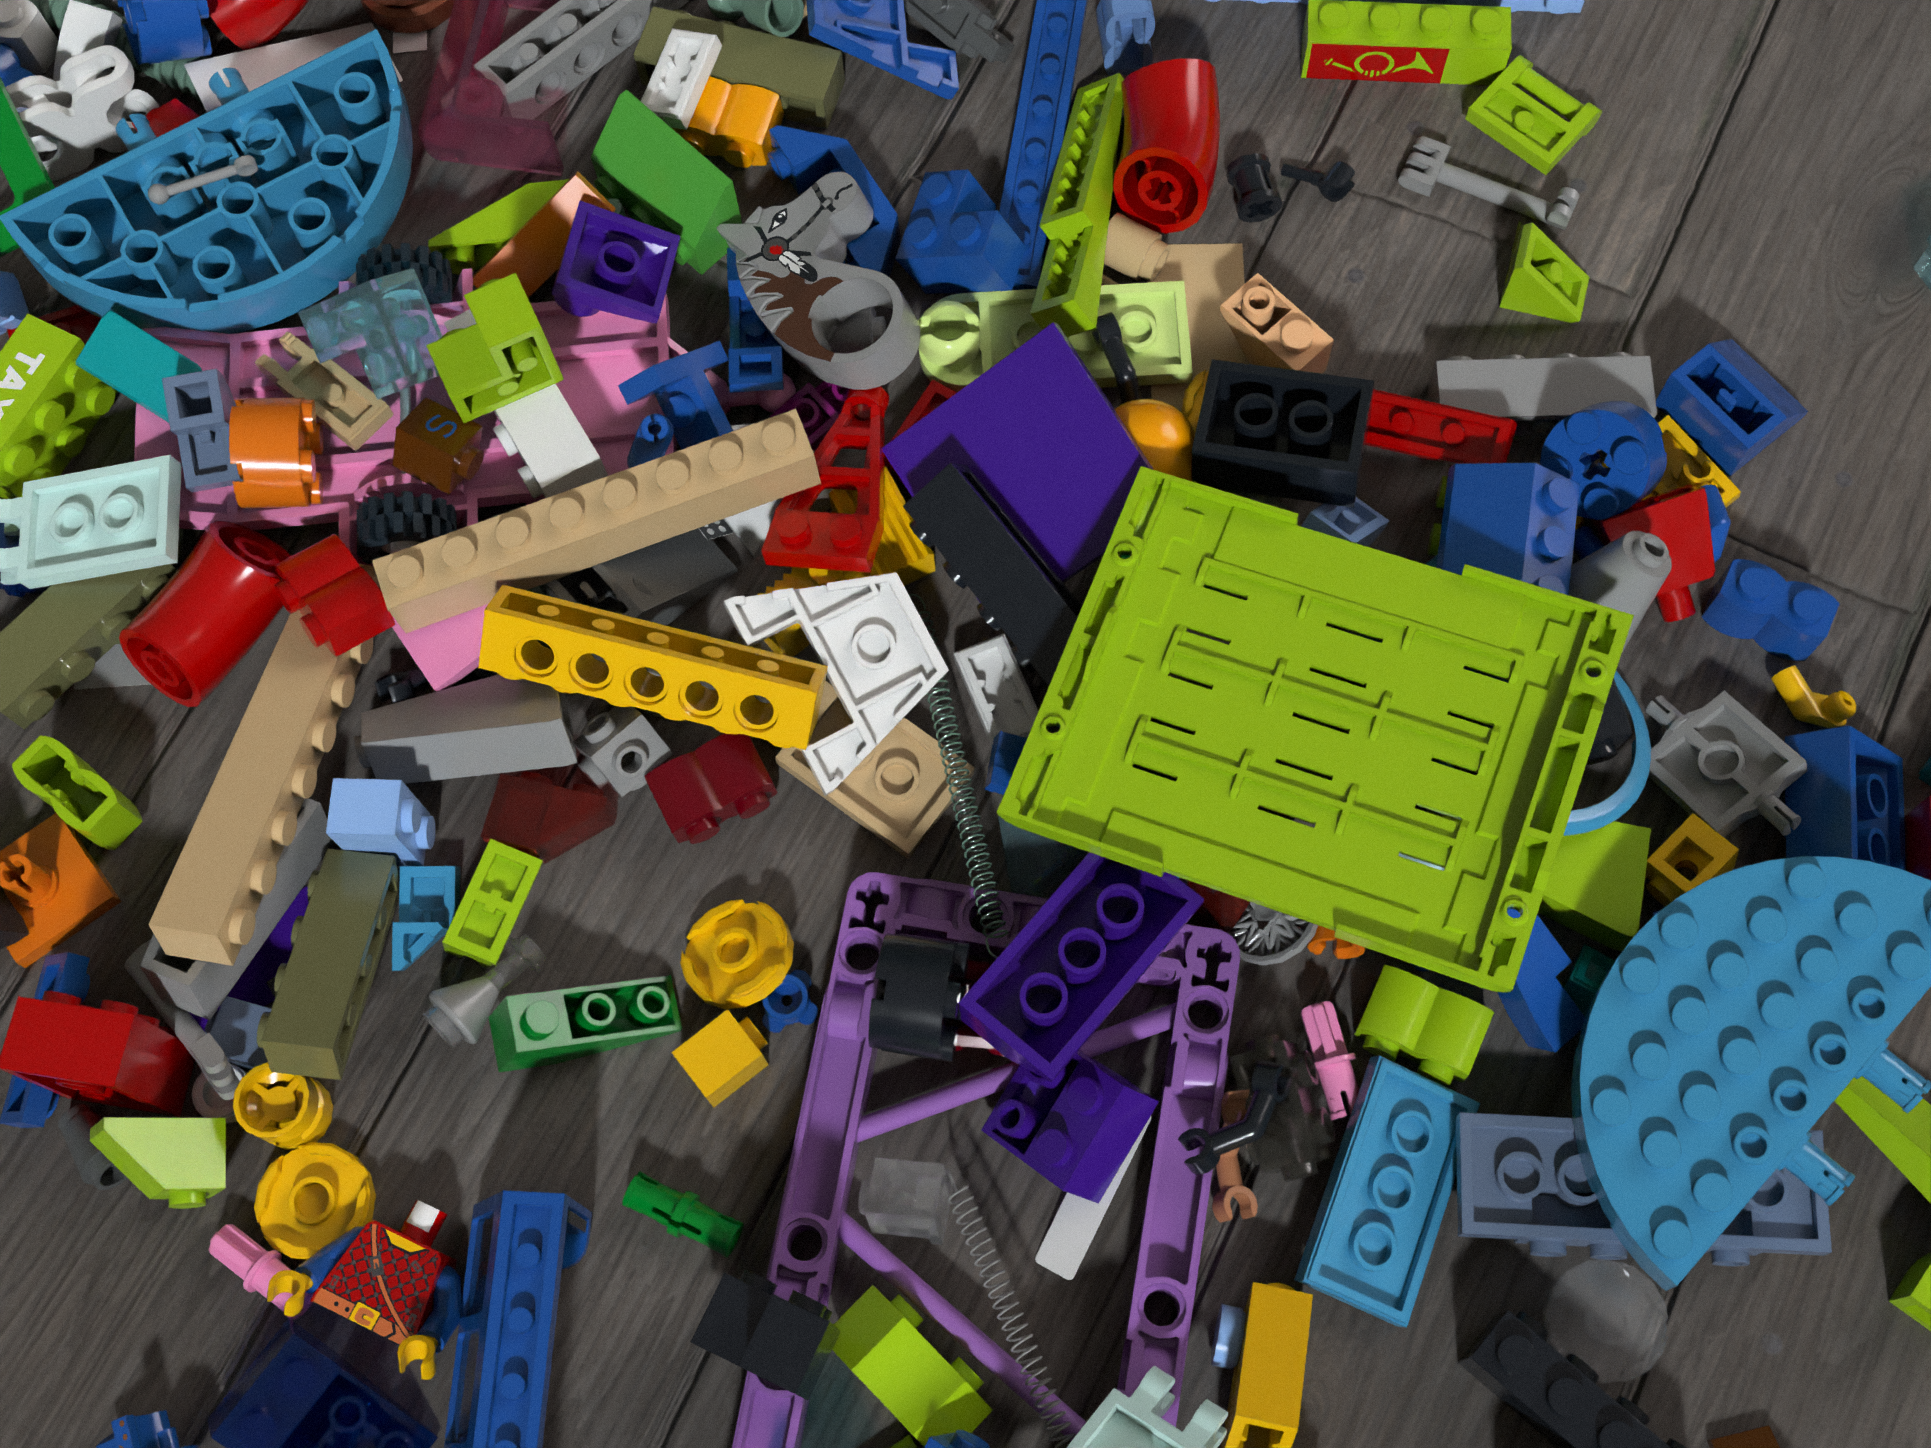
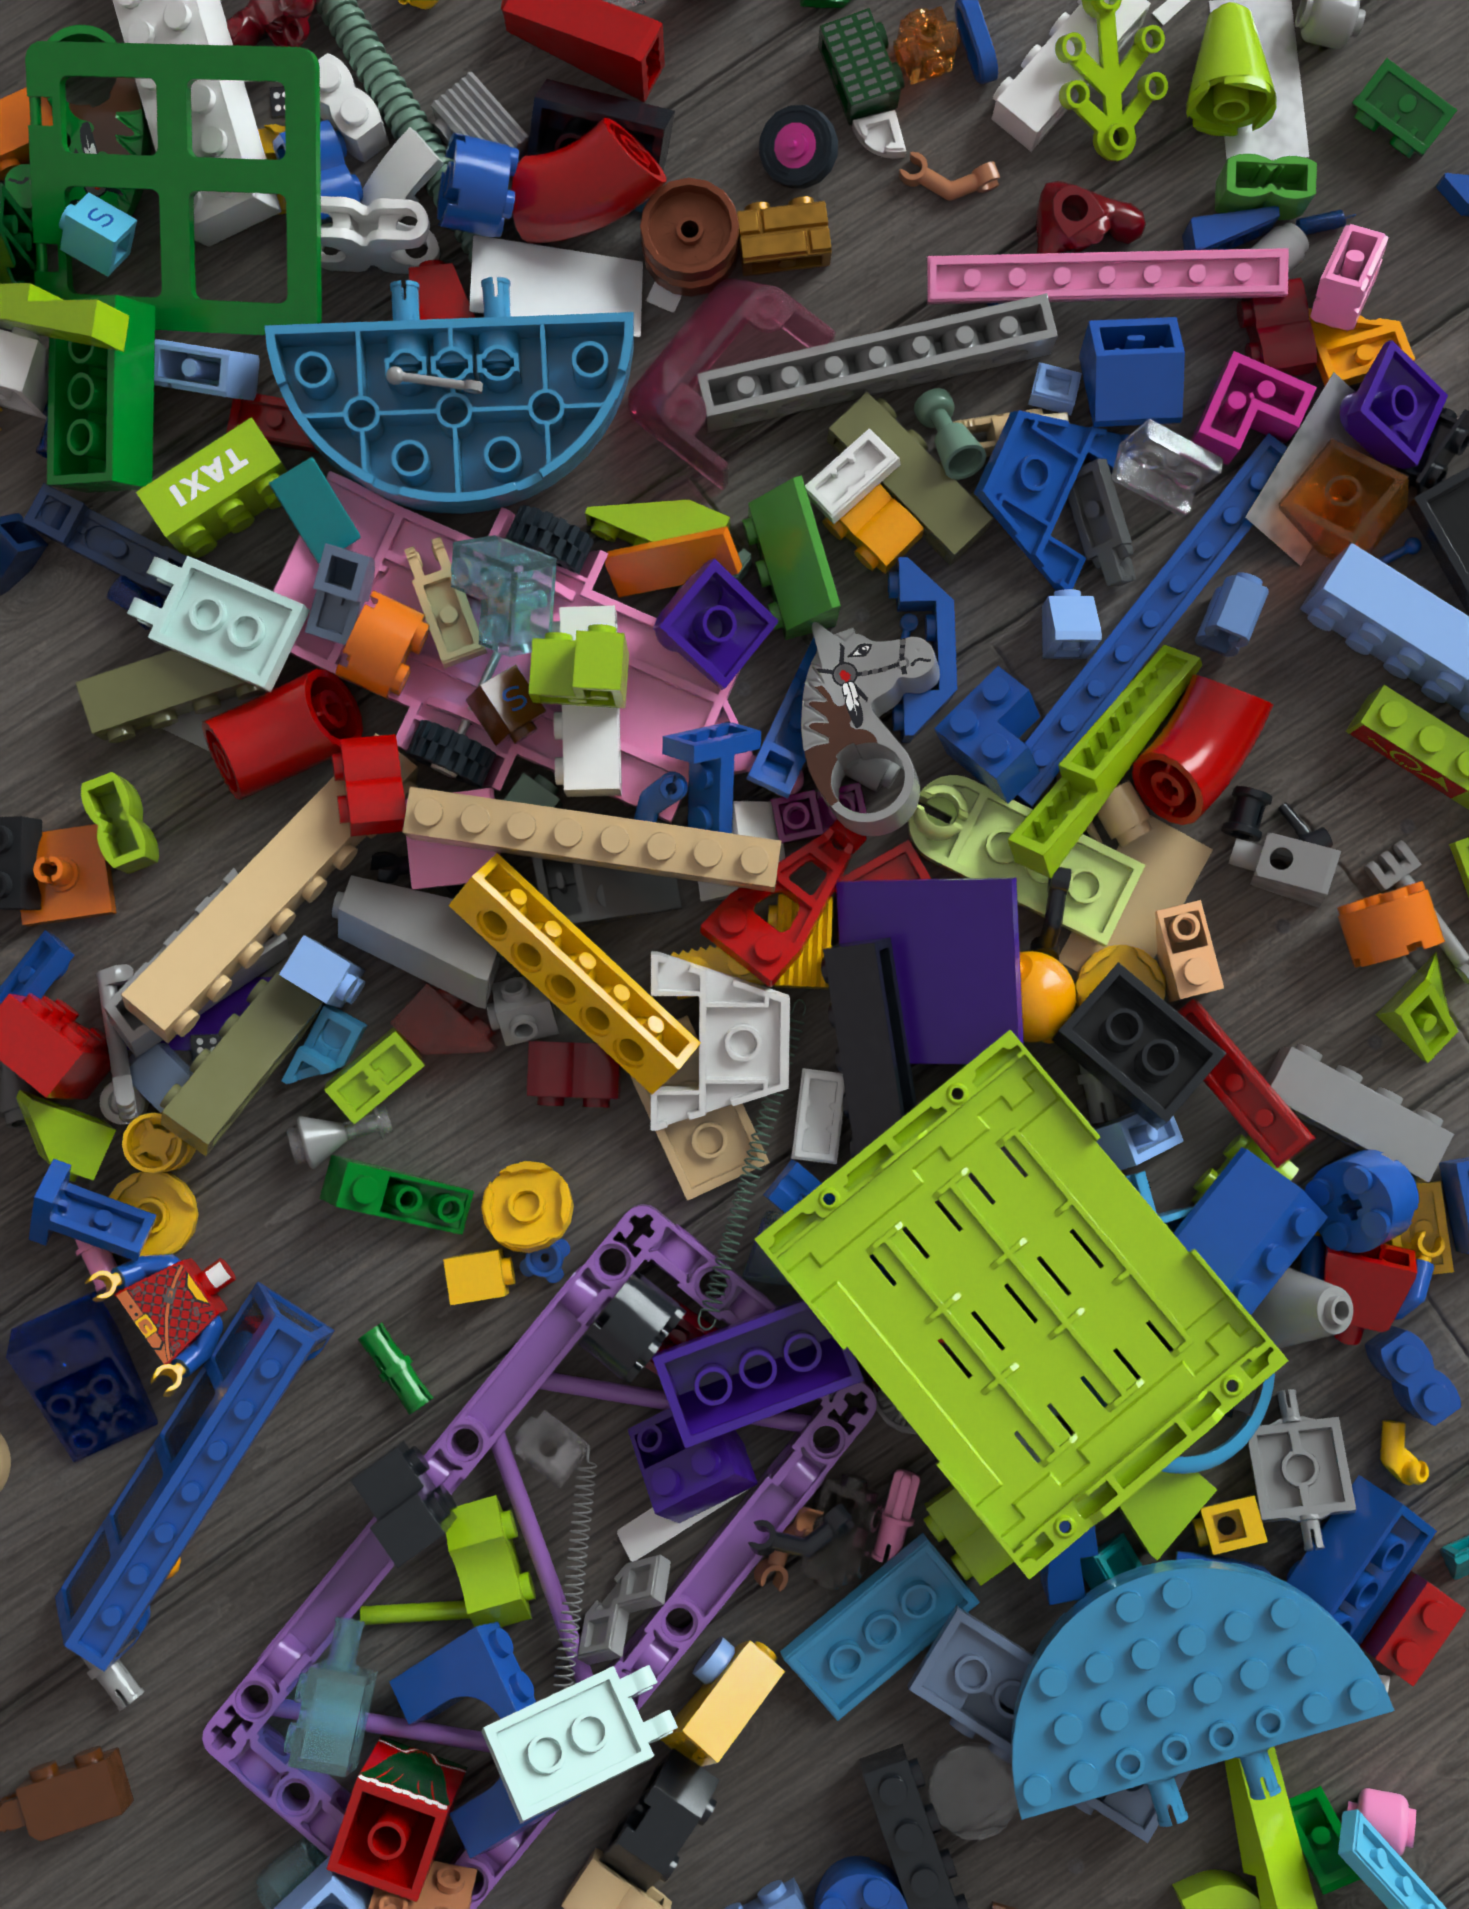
camera: 20 degrees right, 15 degrees up
(230, 1229) = (87, 1216): none -> blue bracket
(976, 112) = (1069, 625): none -> light blue slope
(1083, 1365) = (638, 1587): none -> light grey tile
(1326, 205) = (1307, 864): none -> light grey torso
(1456, 203) = (1390, 924): none -> orange brick

